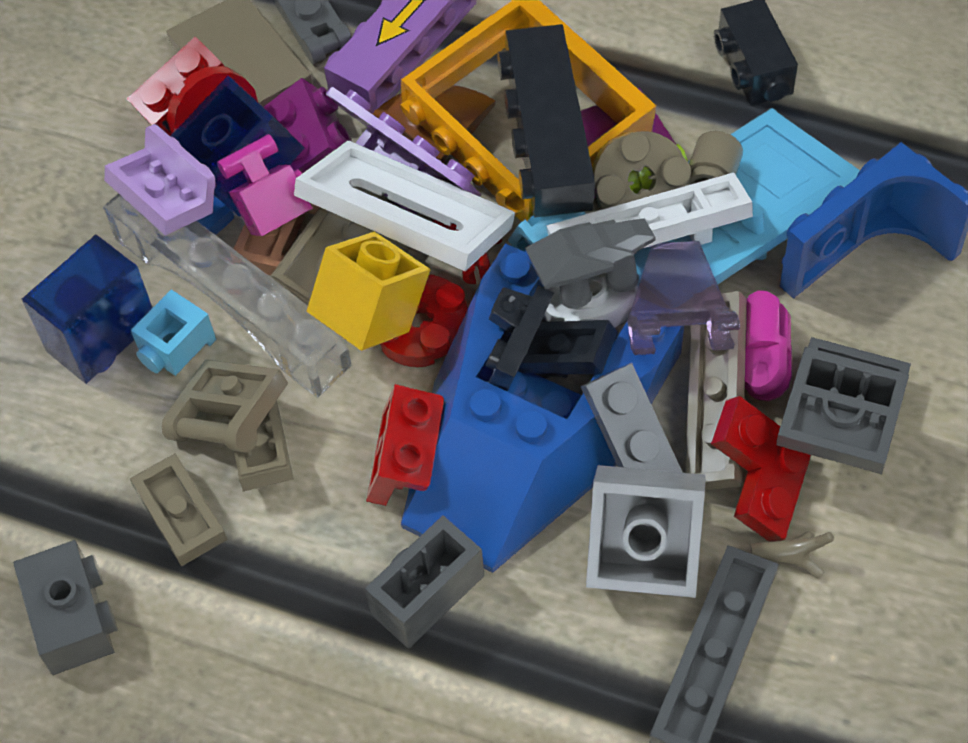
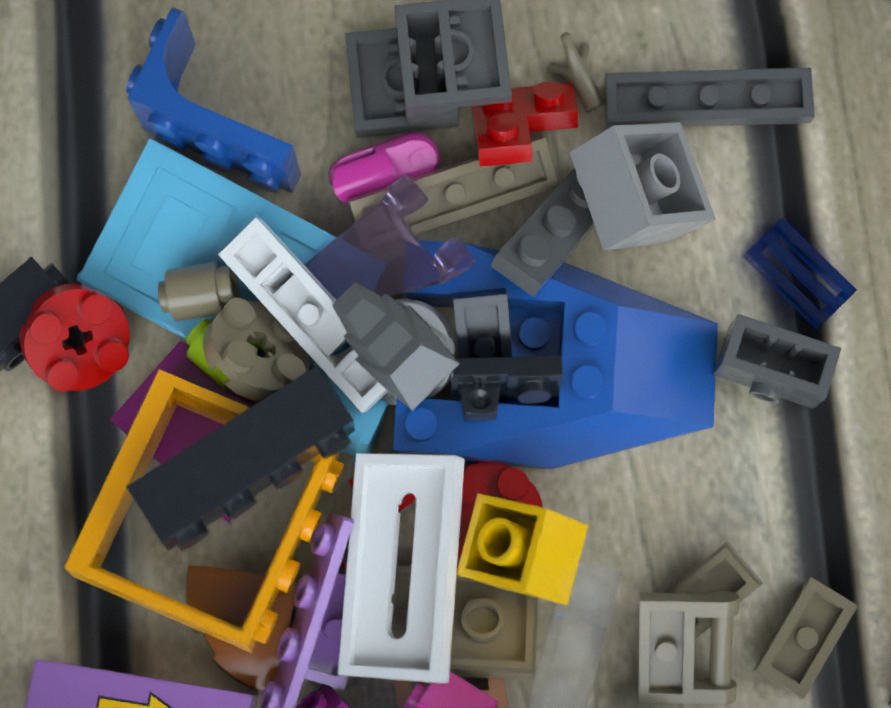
camera: 120 degrees left, 20 degrees up
(405, 443) = (648, 451): red bracket -> none
(496, 642) = (813, 259): none -> clear blue tile
(698, 63) = (48, 325): none -> red plate

